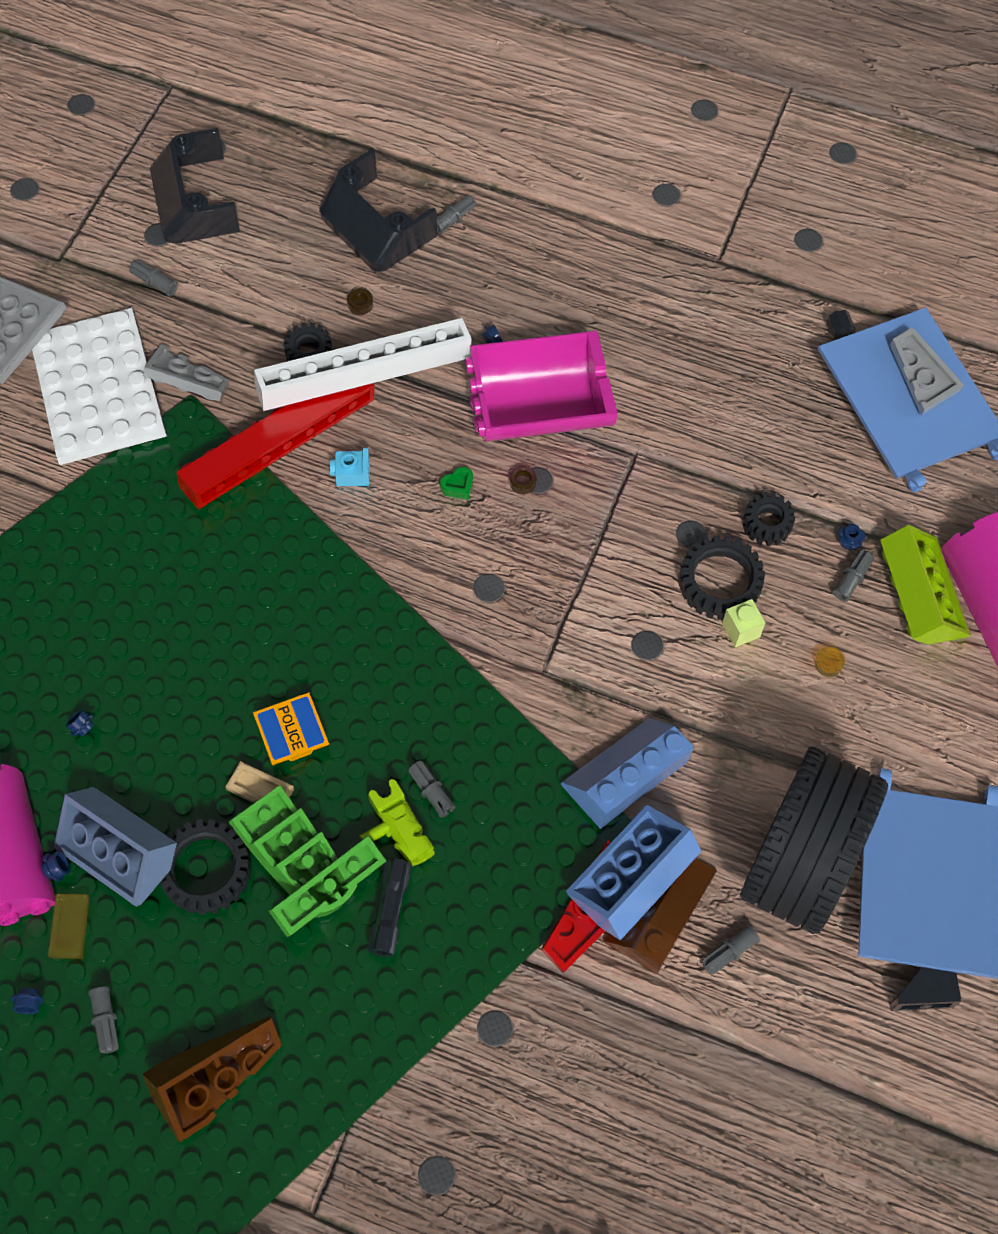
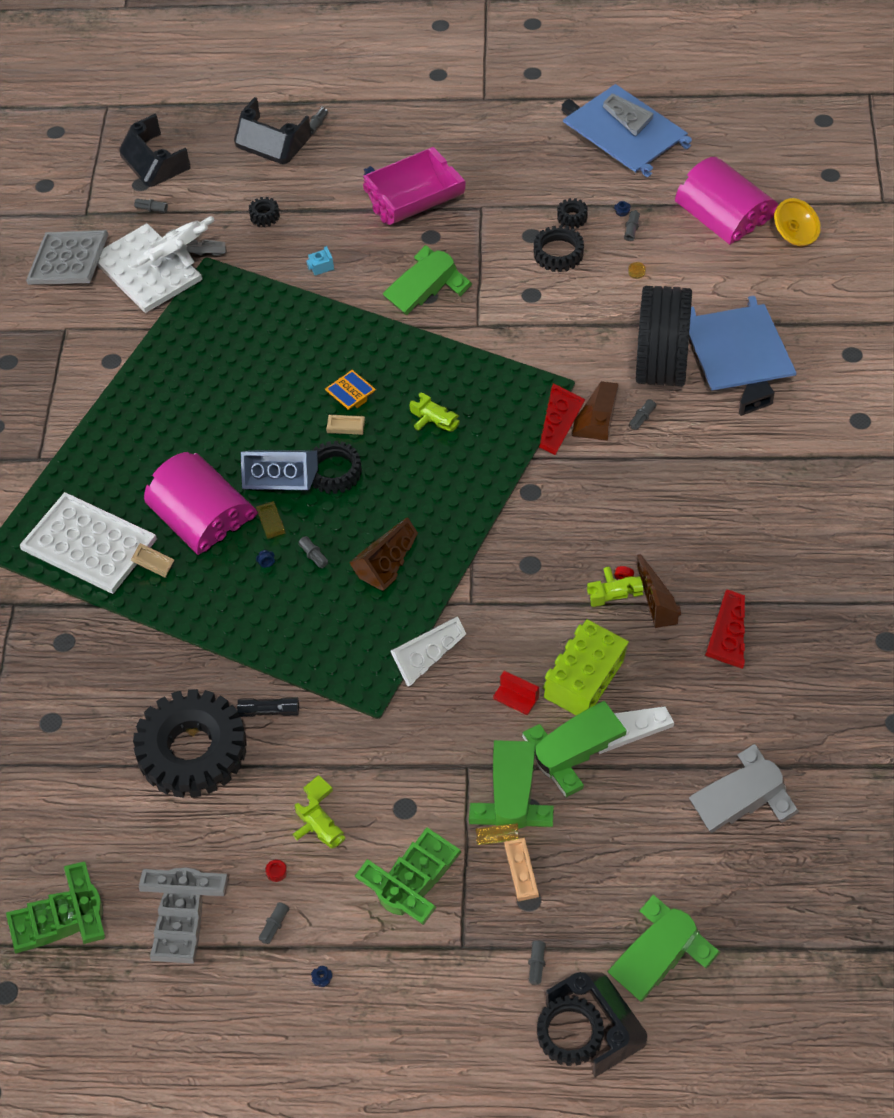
camera: 15 degrees left, 10 degrees down
(55, 866) = (248, 493): dark blue plate -> none
(80, 723) = (227, 426): dark blue plate -> none
(138, 370) = (176, 242): none -> white piece
(266, 443) = (268, 257): red brick -> none
(302, 860) = (386, 444): bright green slope -> none
(360, 301) = (282, 181): dark brown tile -> none
(362, 364) = (304, 203): white brick -> none
(385, 929) = (449, 461): black axle -> none
(431, 789) = (443, 393): dark grey axle -> none
(457, 484) = (385, 252): green tile -> none
(494, 561) = (426, 278): none -> bright green slope
(523, 480) = (422, 238): dark brown tile -> none
(628, 770) = (550, 351): medium blue slope -> none
(634, 871) = (574, 390): medium blue slope -> none
(743, 623) = (581, 265): yellowish green brick -> none
(924, 586) = (672, 217): lime slope -> none

